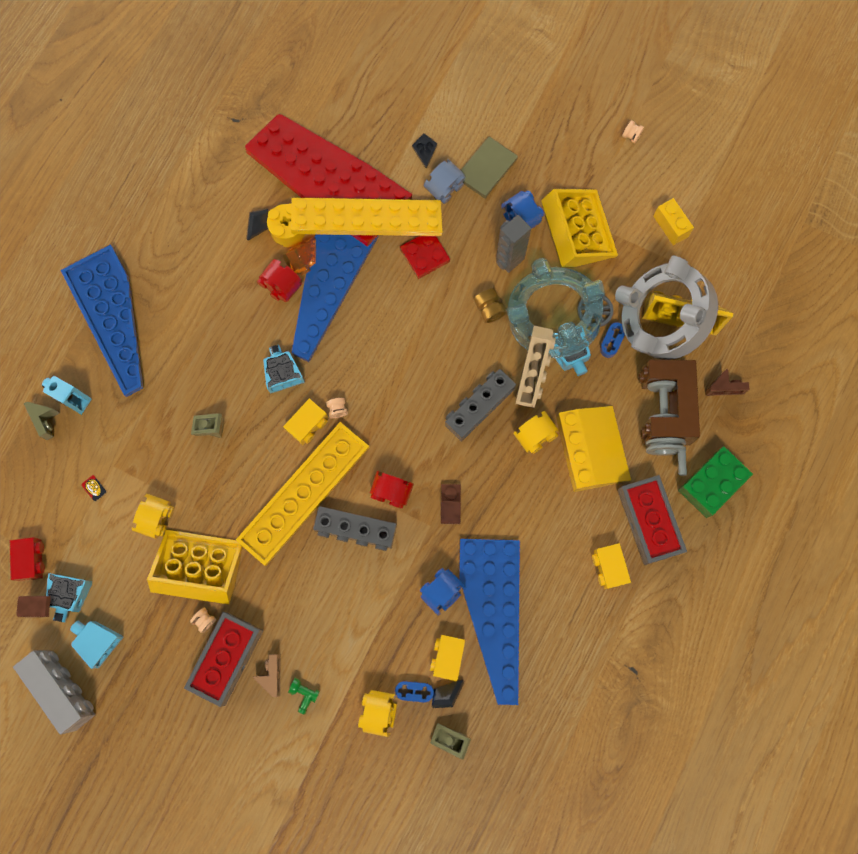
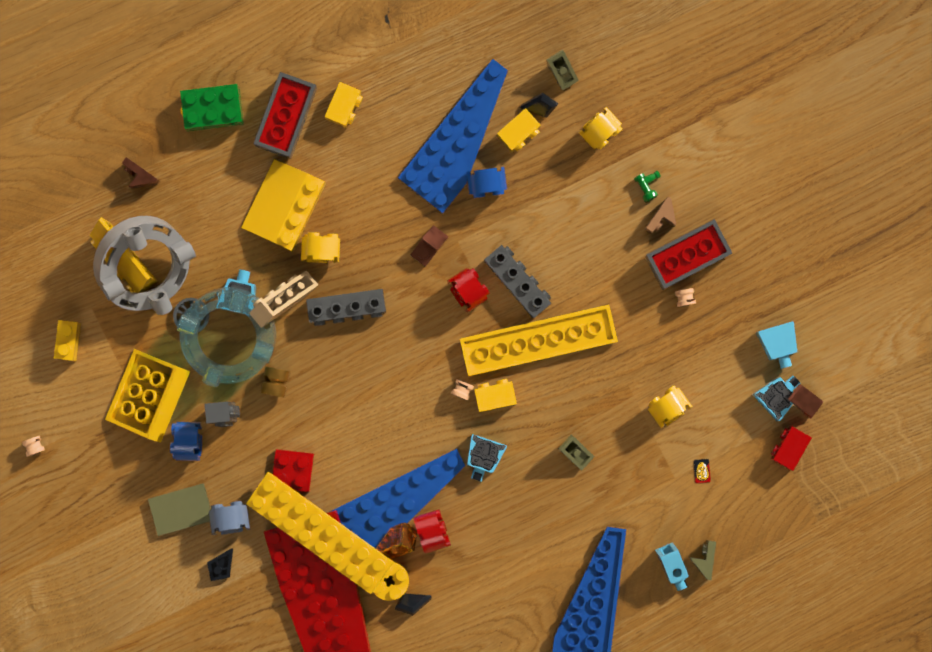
camera: 150 degrees left, 10 degrees up
(54, 690) = (831, 324): light grey brick -> none
(195, 567) = (662, 343): yellow slope -> none
(412, 696) = (566, 122): blue beam -> none
(609, 338) = (200, 284): blue beam -> none
(670, 432) = (190, 181): reddish brown piece -> none

